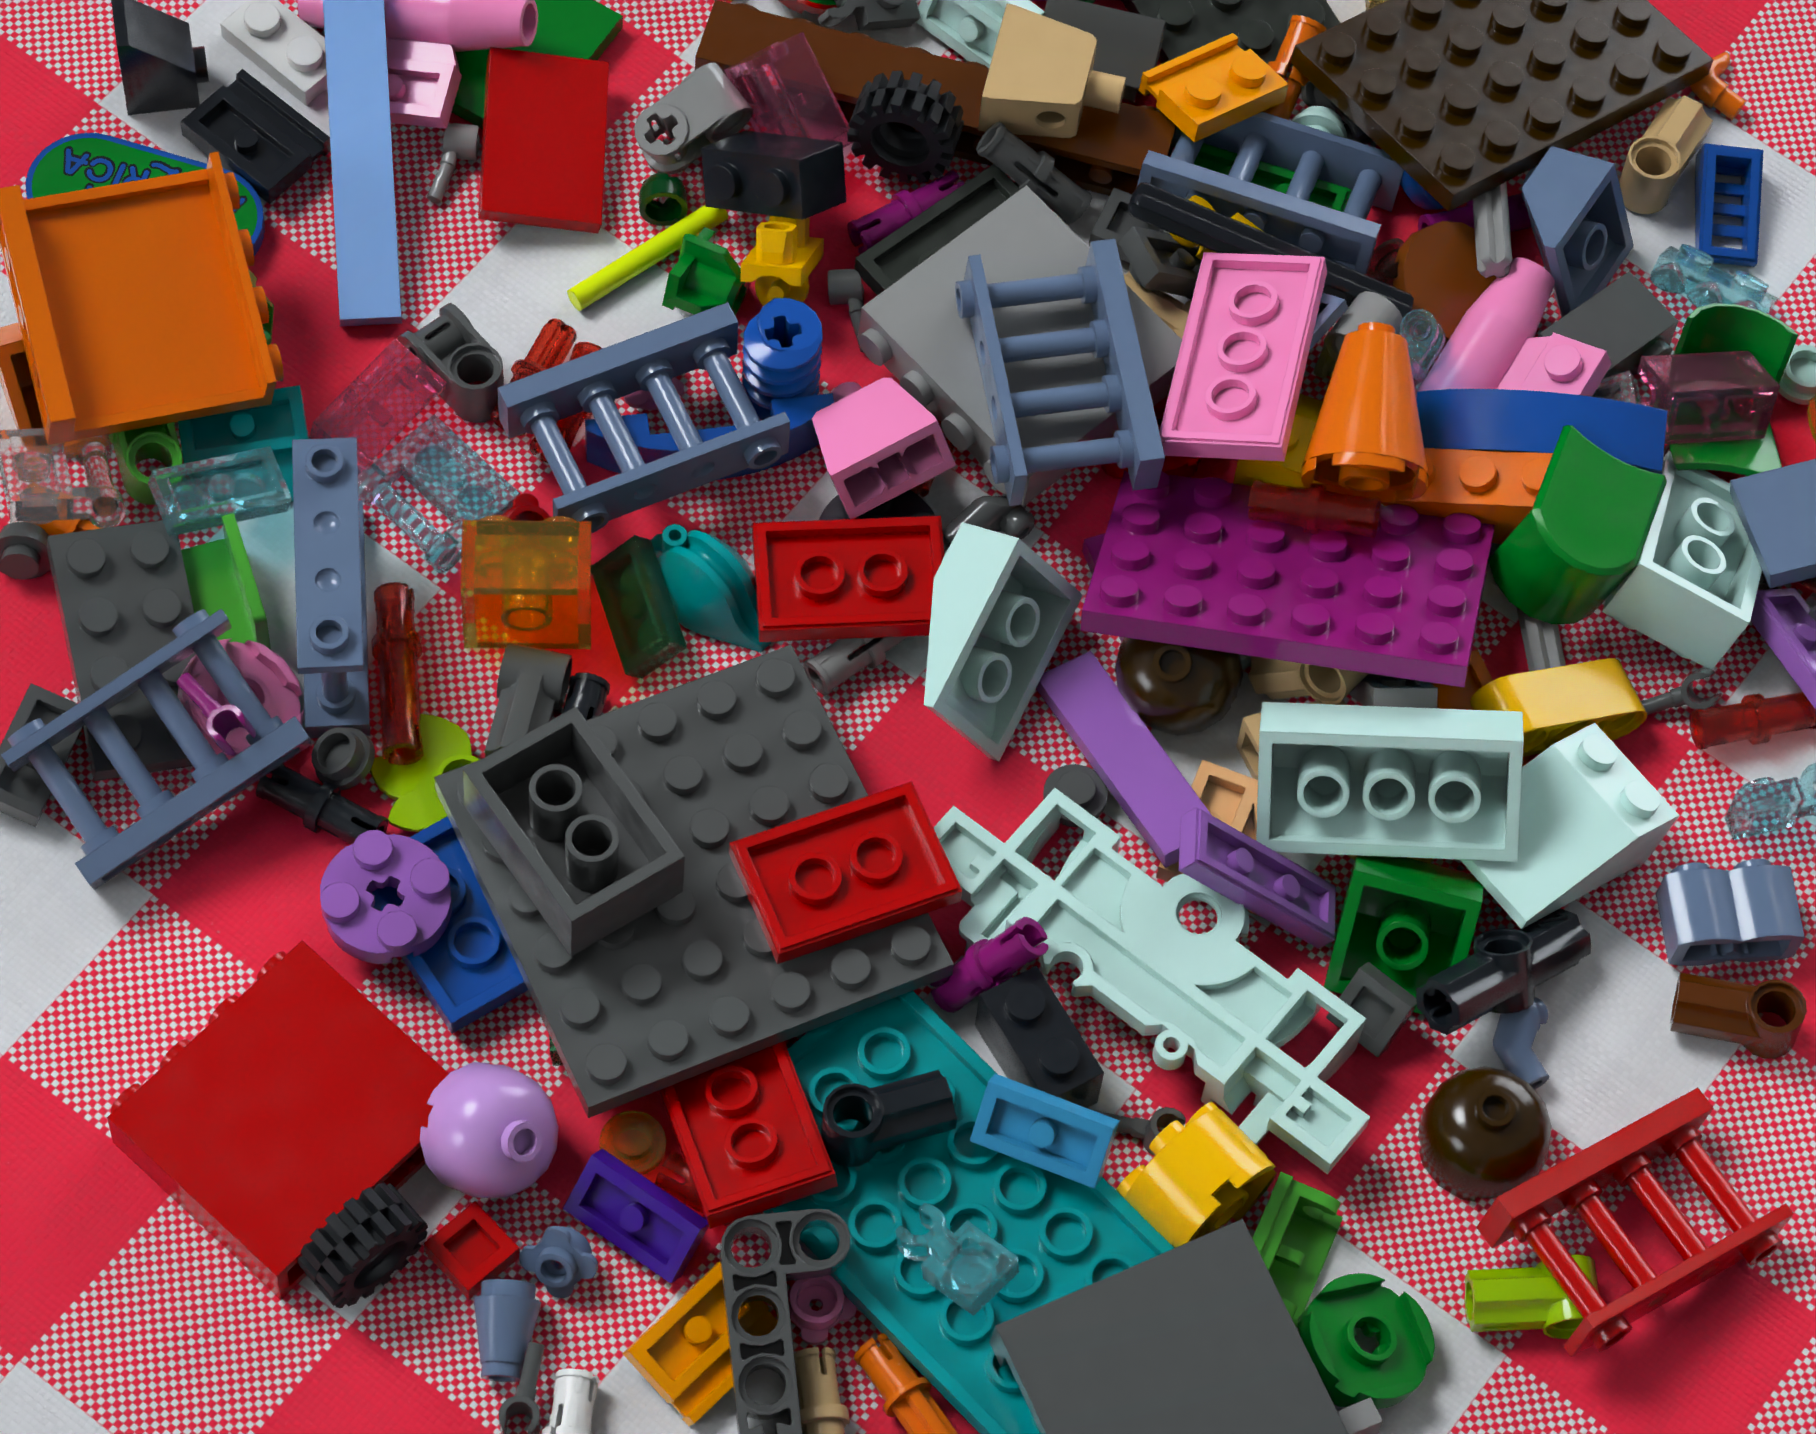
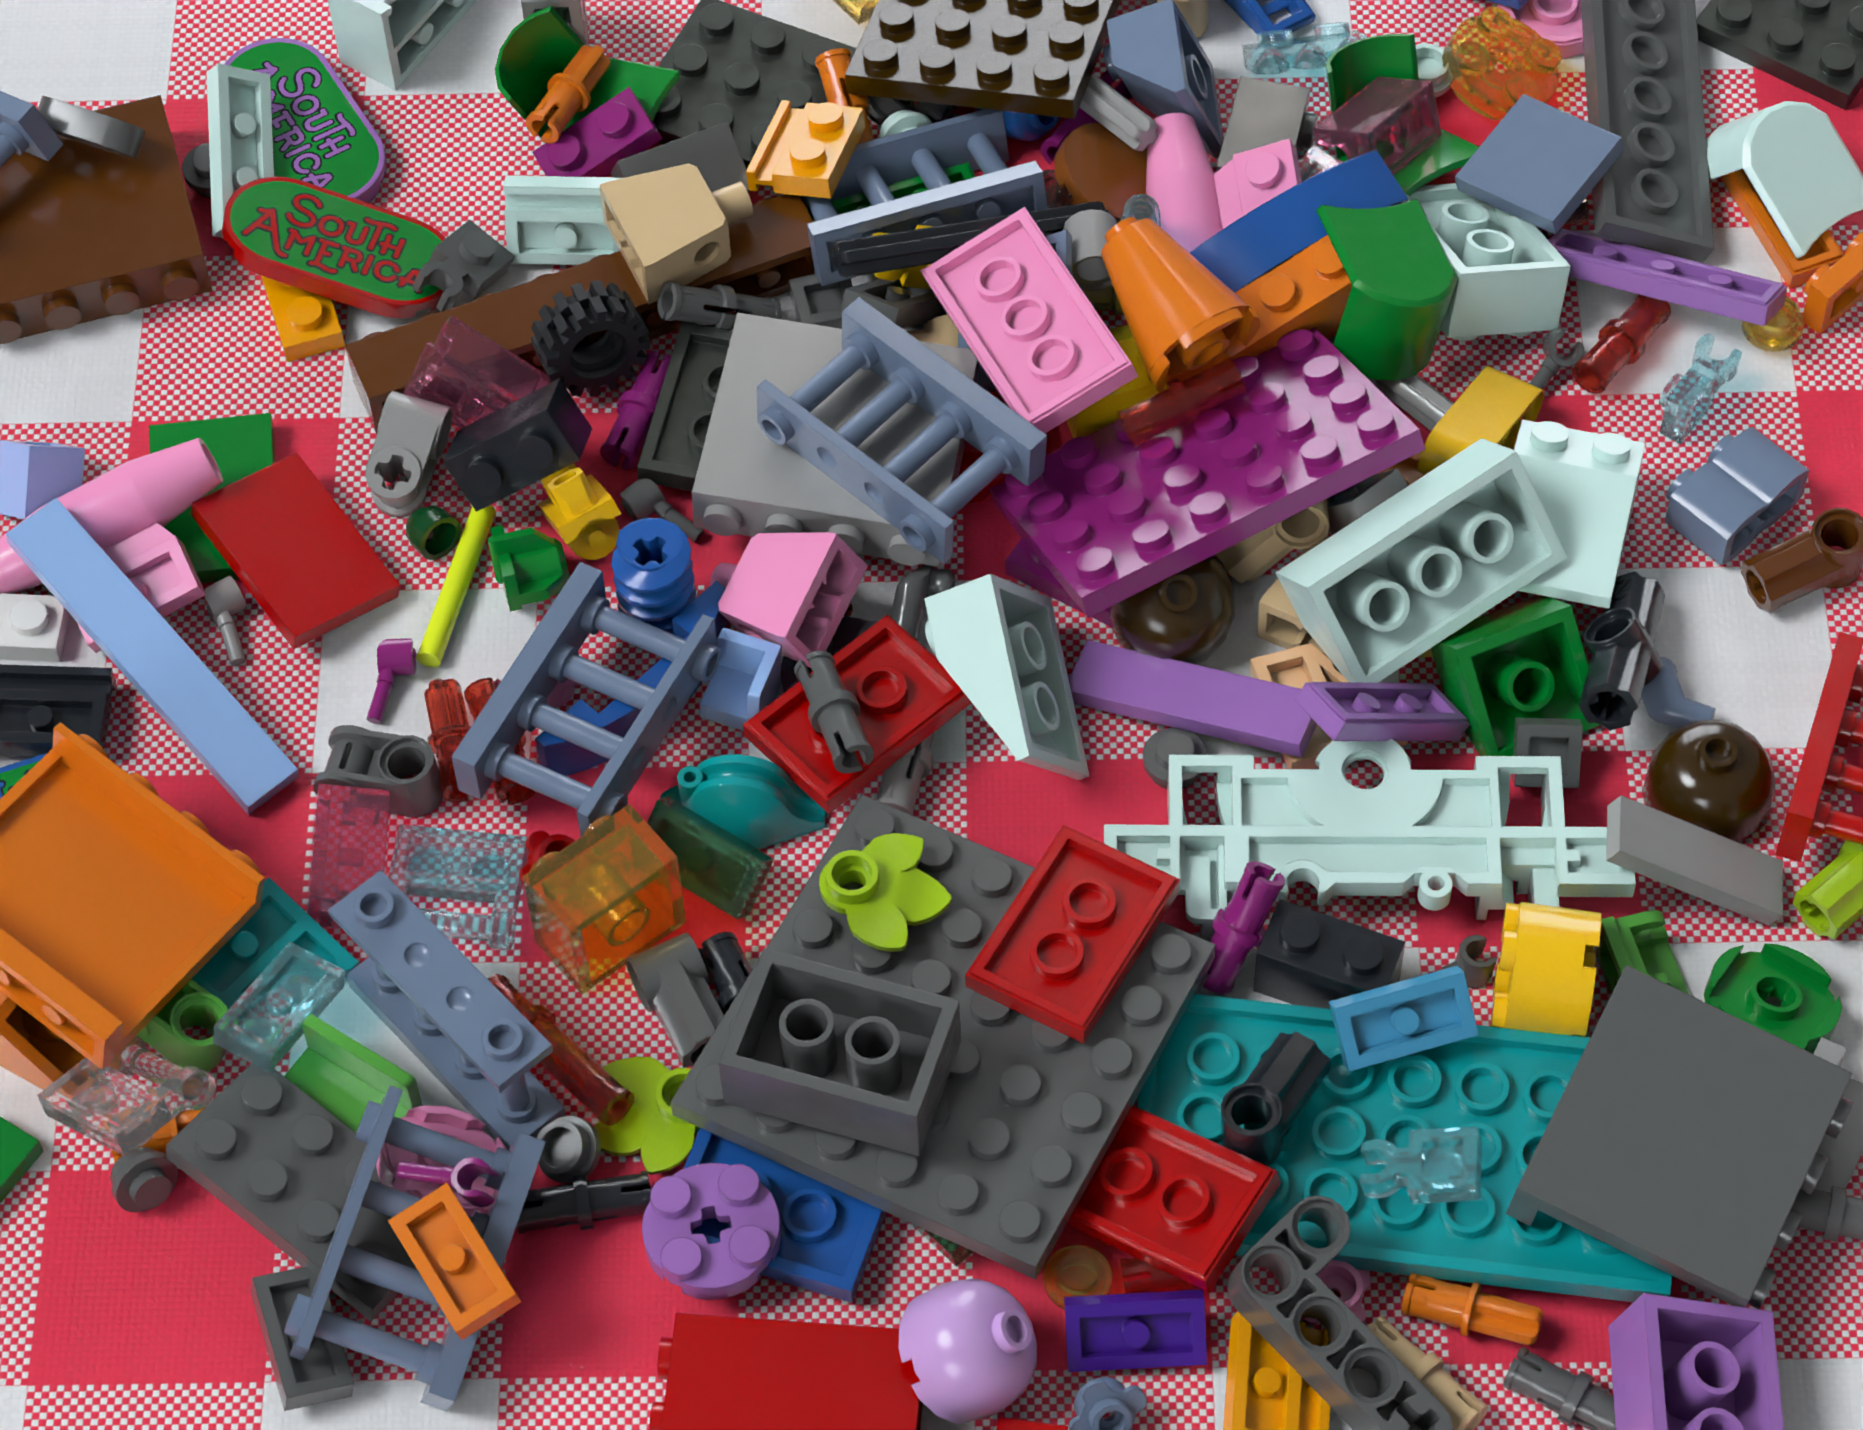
camera: 30 degrees left, 5 degrees down
(163, 778) = (454, 1261): none -> orange plate
(545, 280) = (394, 659): none -> magenta hand
(735, 739) = (892, 892): none -> lime plate
(792, 489) = (744, 679): none -> light blue panel
(820, 563) = (834, 712): none -> dark grey pin
(1402, 1182) = (1694, 860): none -> light grey tile

